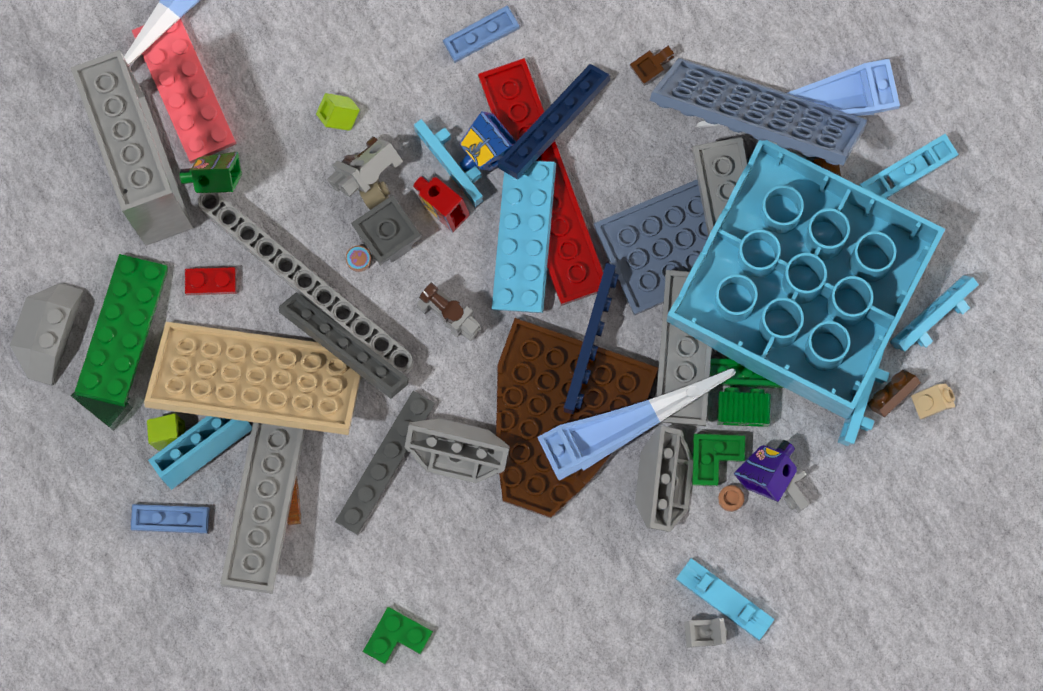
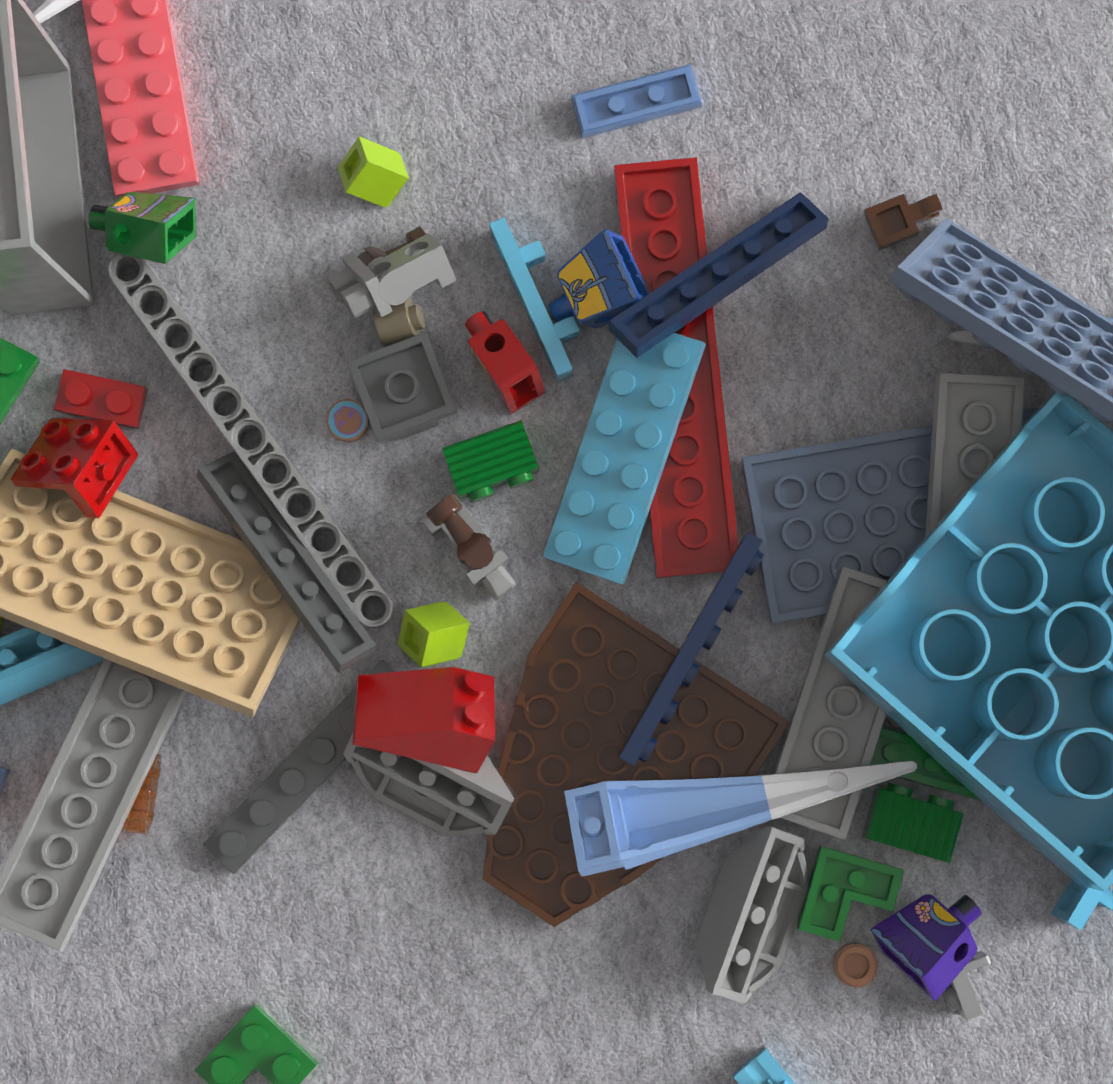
camera: 10 degrees right, 5 degrees up
(208, 314) = (81, 458): none -> red bracket
(439, 368) = (433, 633): none -> lime panel
(448, 261) = (491, 461): none -> green brick
(448, 411) = (427, 715): none -> red slope

